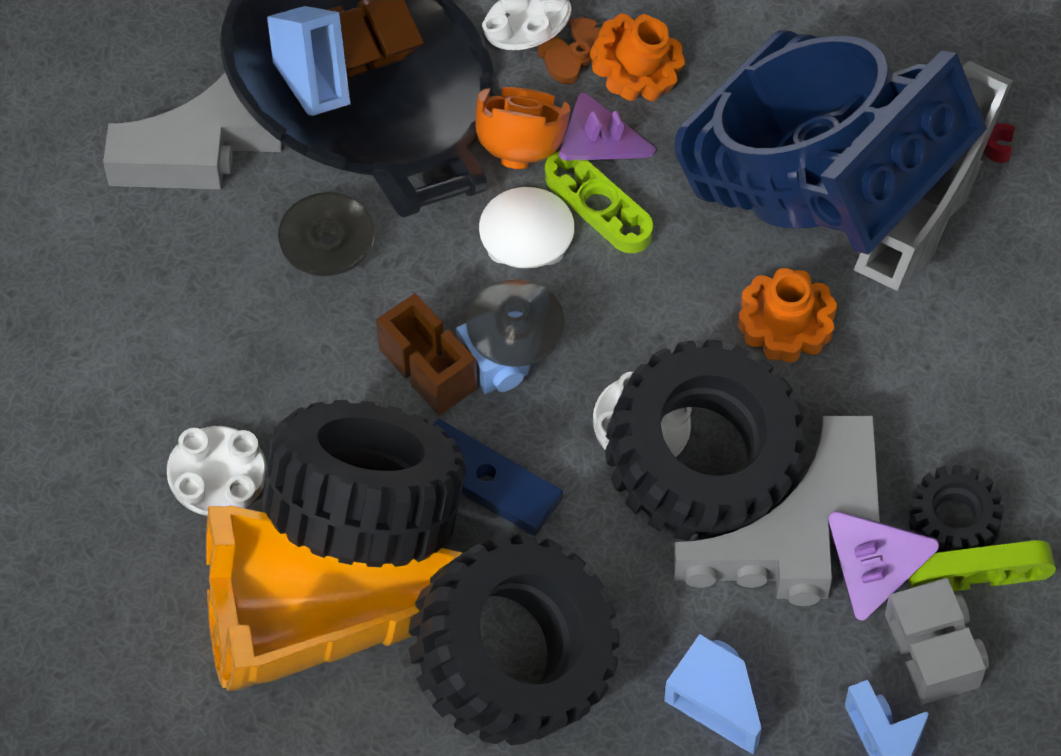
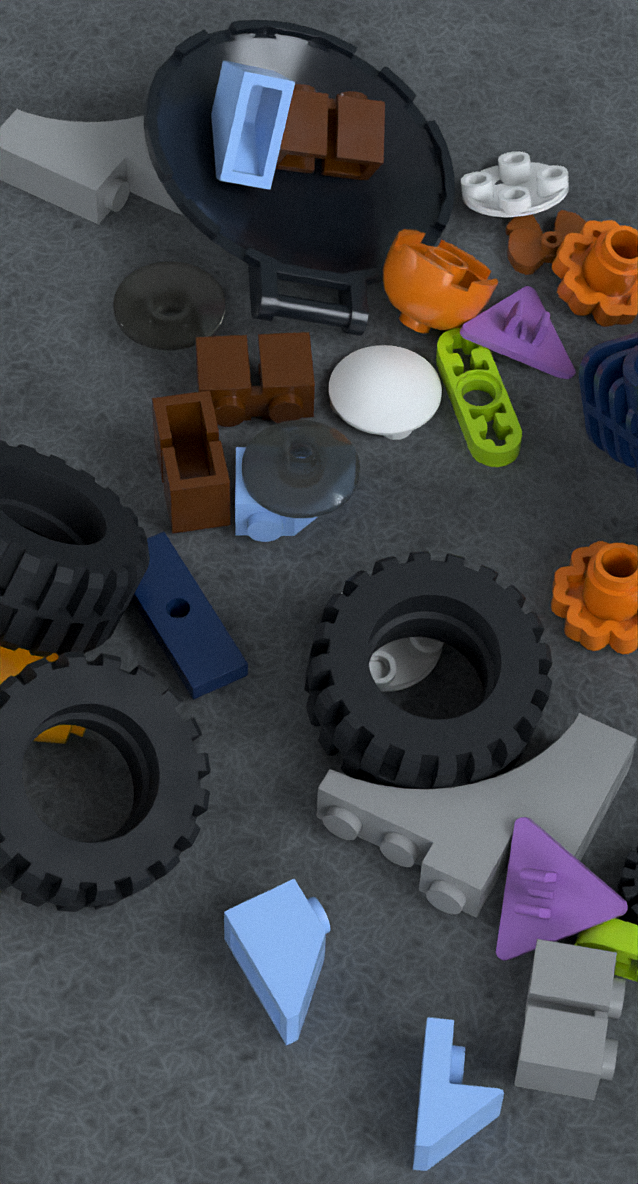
camera: 25 degrees right, 5 degrees down
(445, 263) = (284, 377): none -> reddish brown piece

